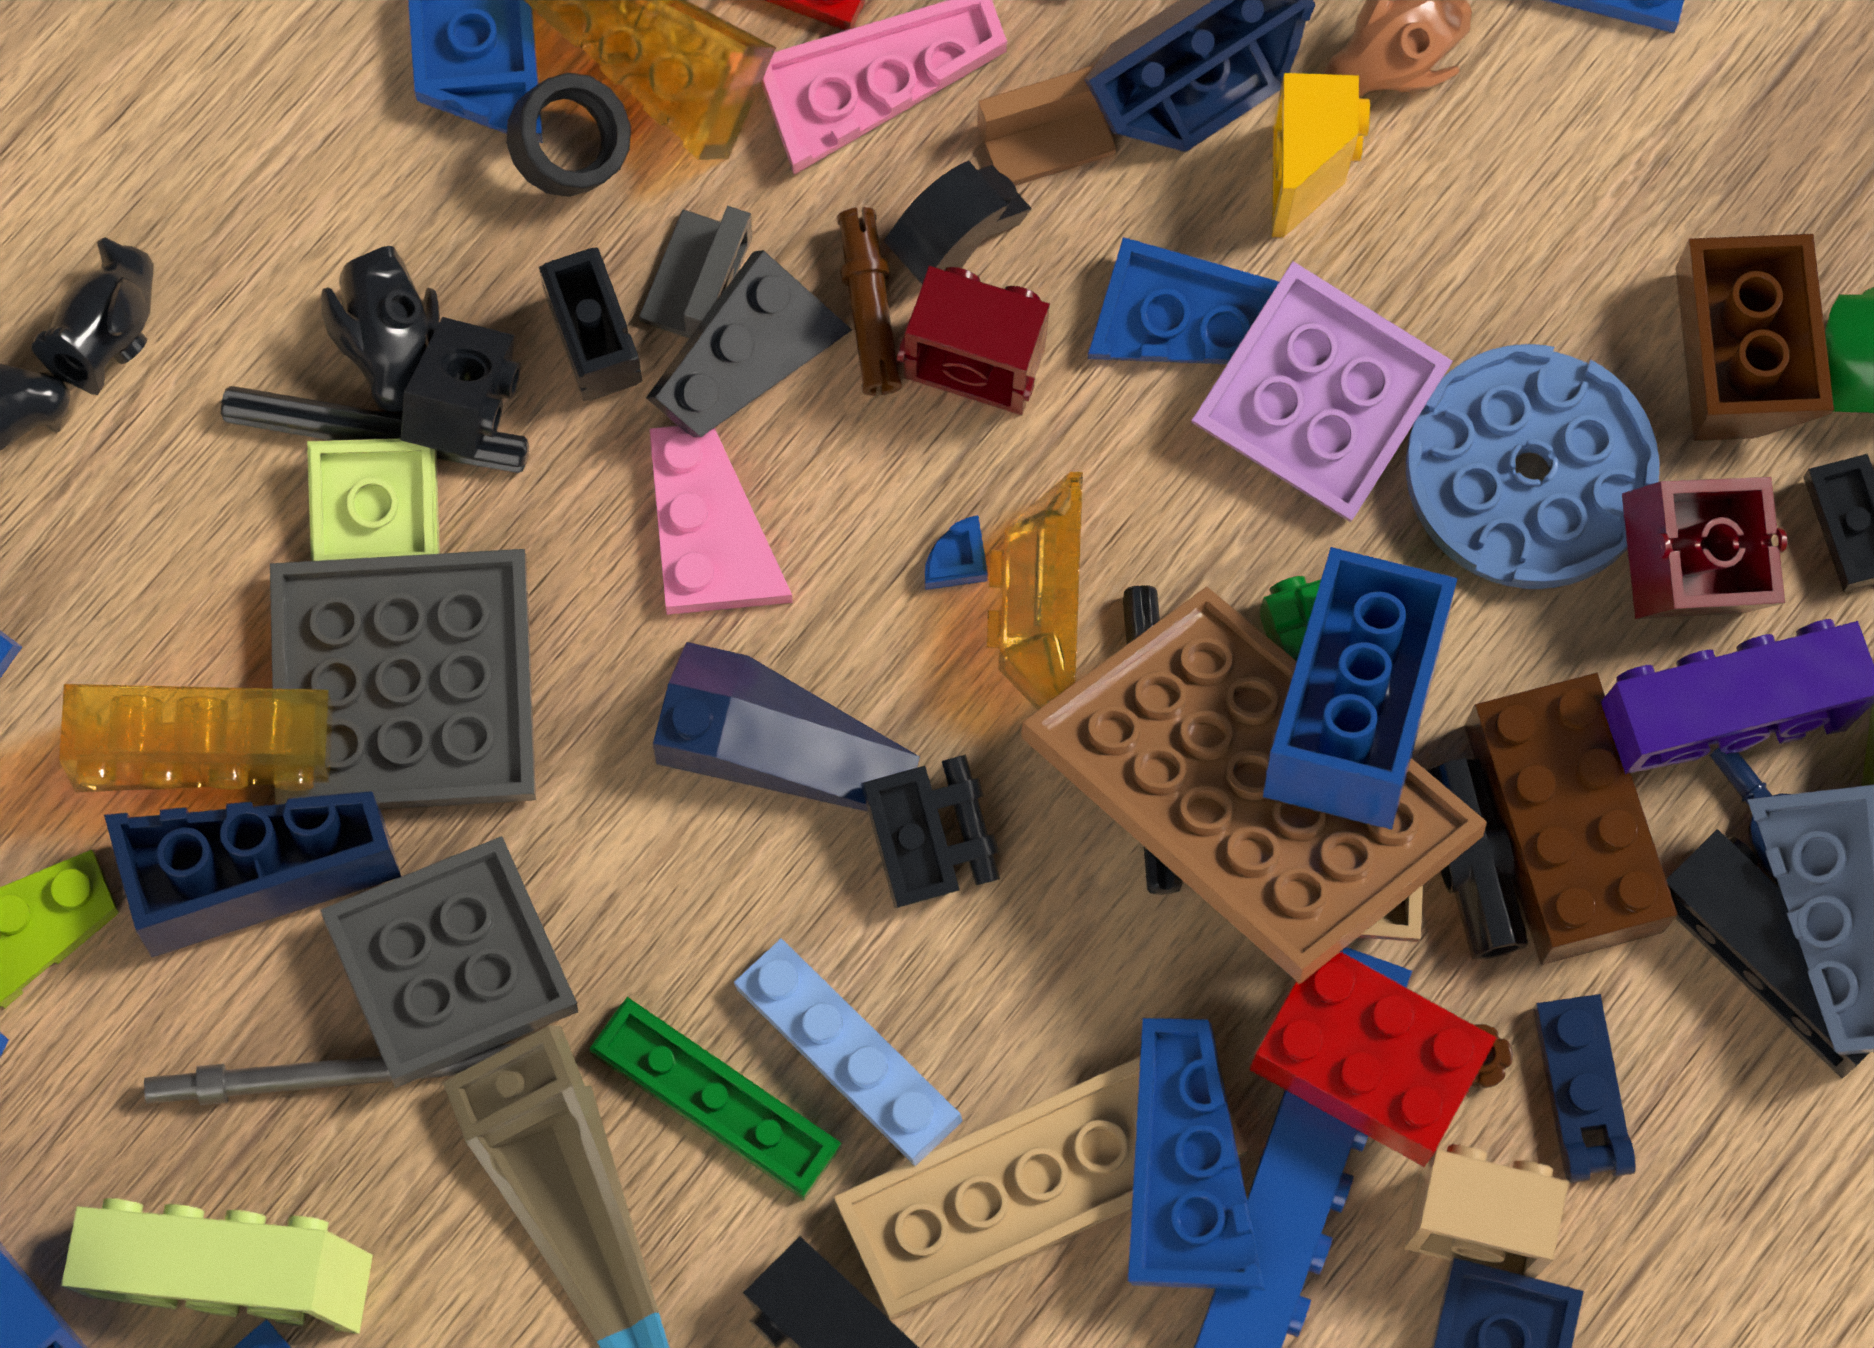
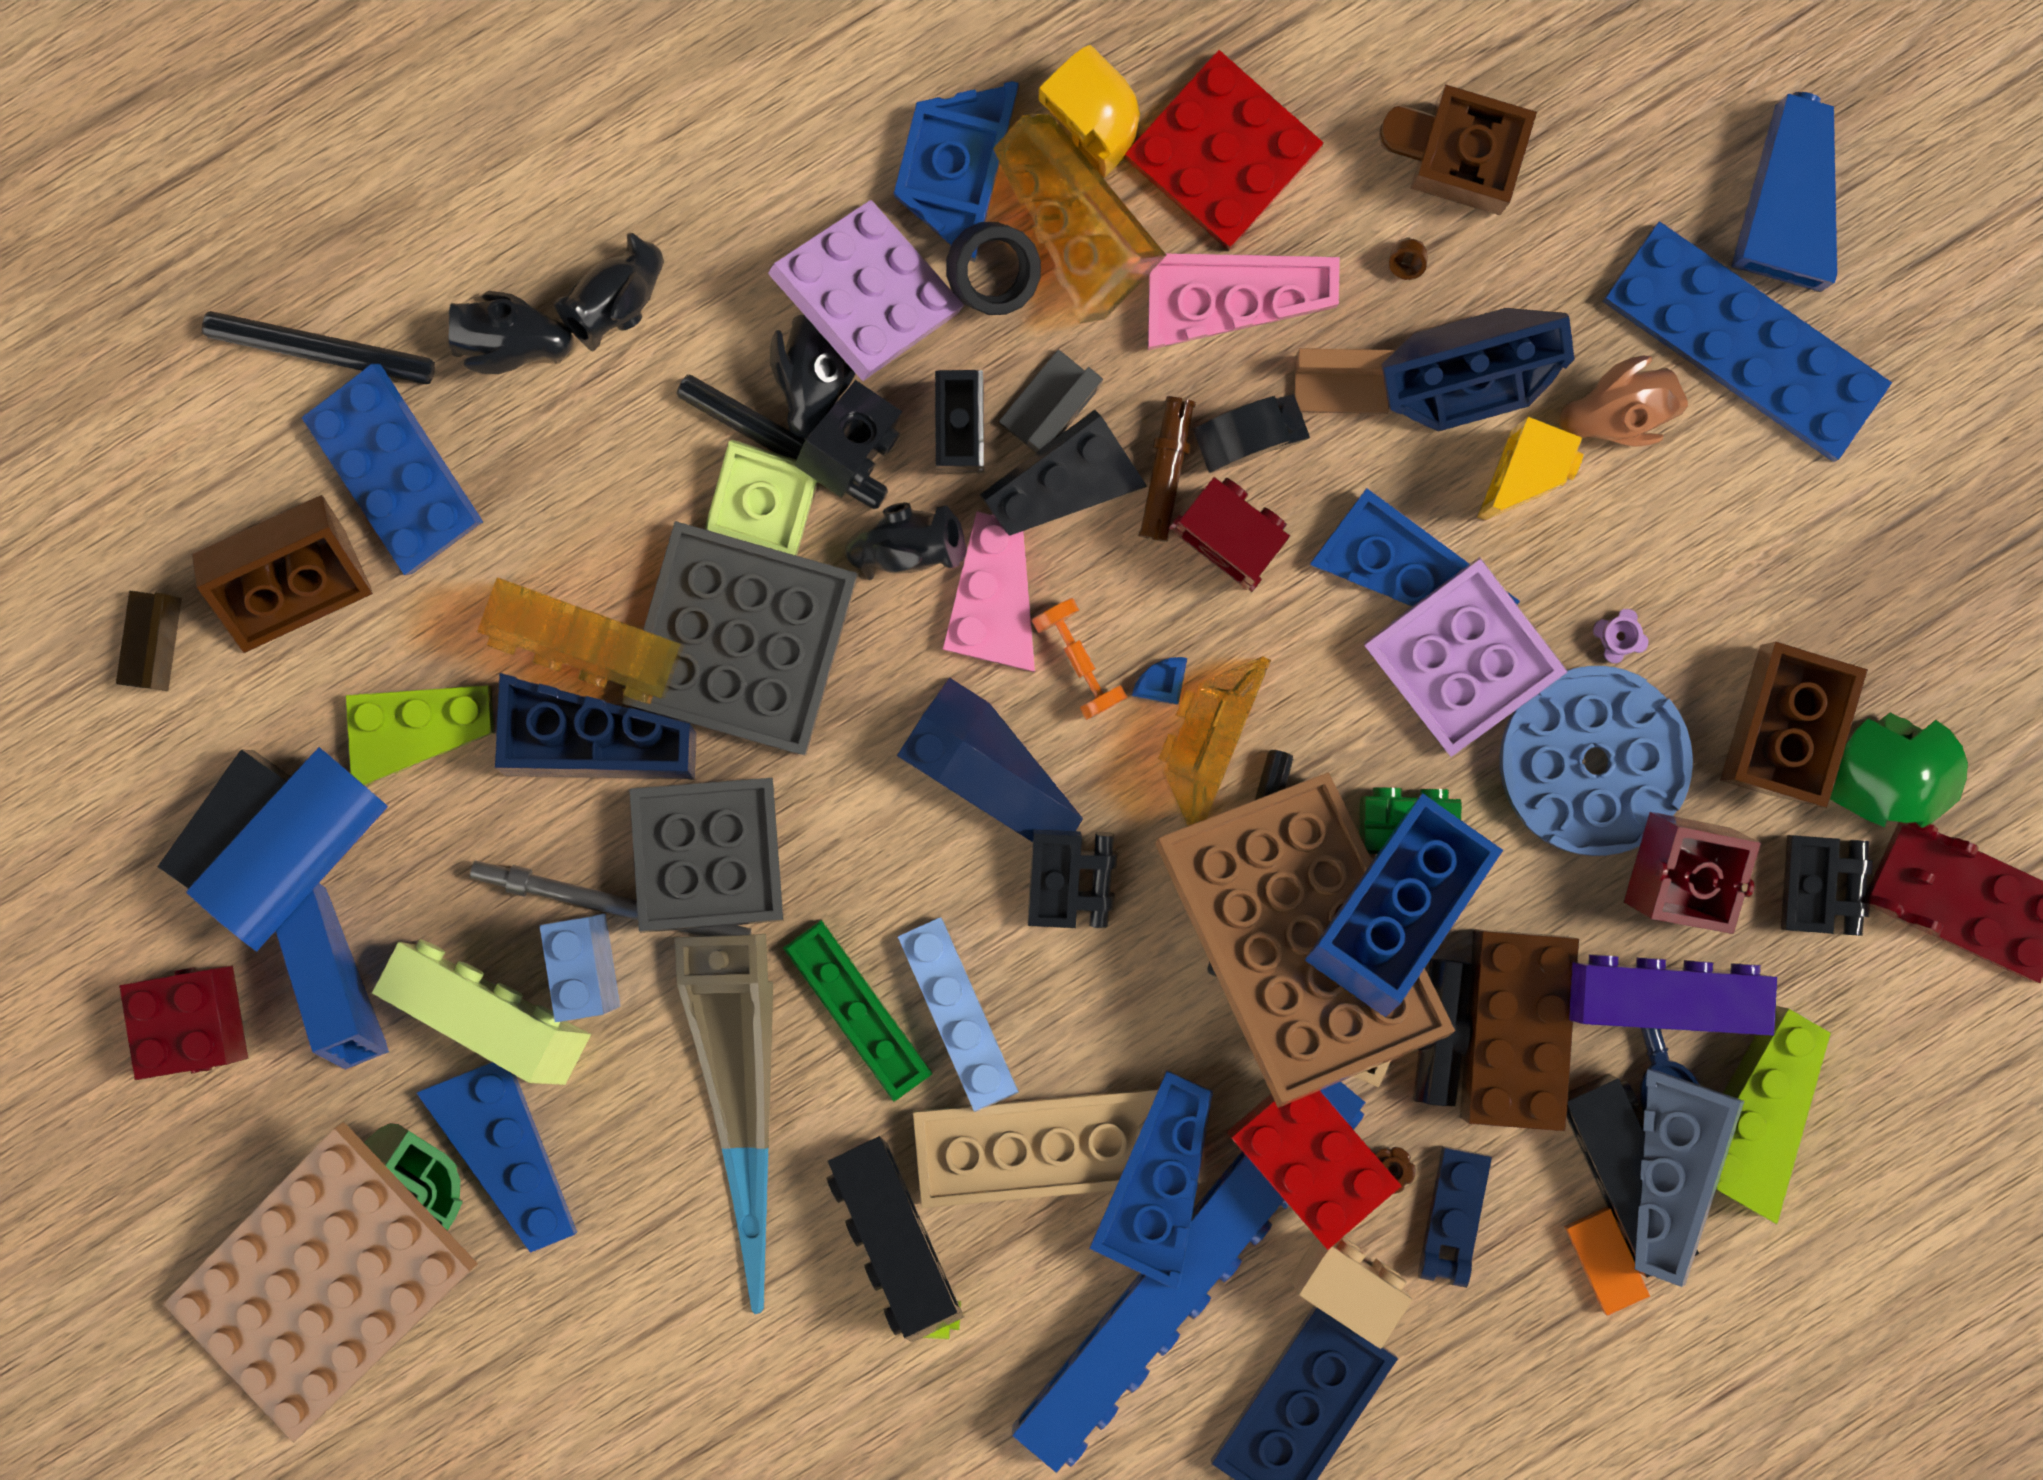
camera: 20 degrees right, 15 degrees up
(329, 1149) = (580, 967): none -> medium blue brick
(419, 207) = (866, 289): none -> lavender plate
(574, 487) = (907, 541): none -> black animal
(796, 518) = (1079, 658): none -> orange wheel
(1508, 295) = (1634, 638): none -> lavender plate
(1800, 1076) = (1607, 1261): none -> orange tile

